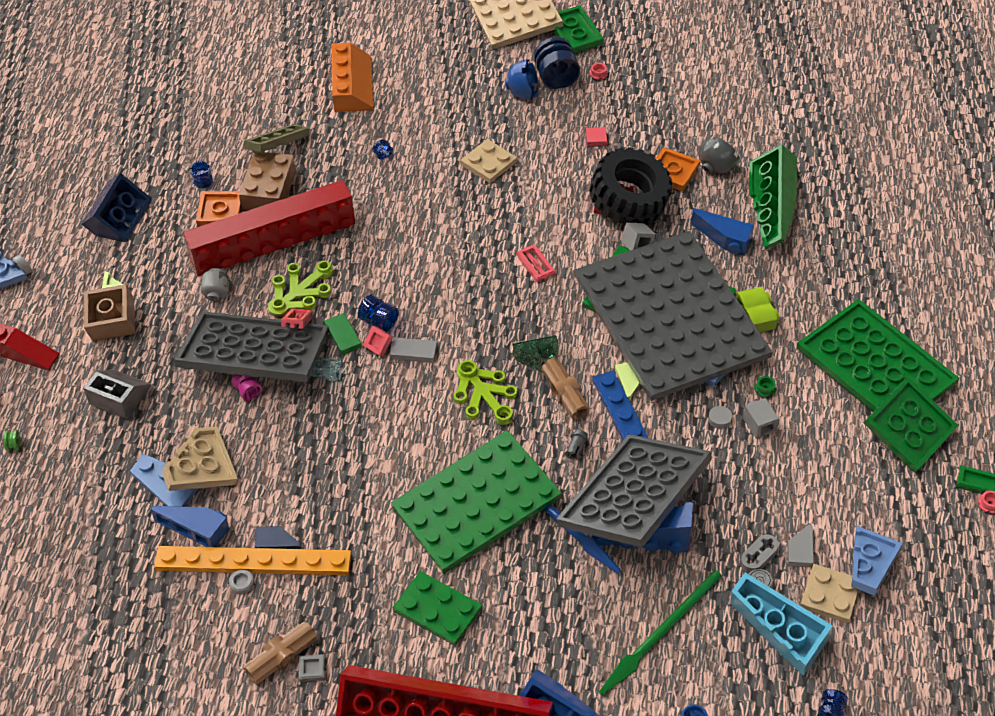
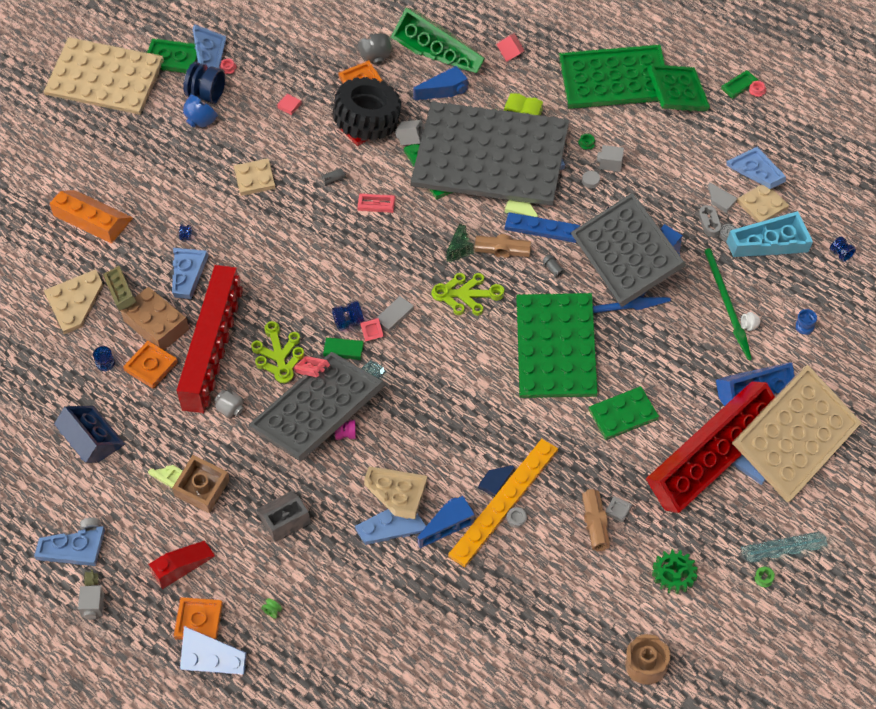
camera: 55 degrees left, 5 degrees up
(251, 120) = (74, 299): none -> tan plate
(352, 172) = (187, 271): none -> medium blue wing
(539, 214) = (333, 176): none -> dark grey pin
(603, 47) = (208, 46): none -> medium blue wing
(650, 665) = (750, 321): none -> white plate
(828, 256) = (510, 47): none -> coral panel

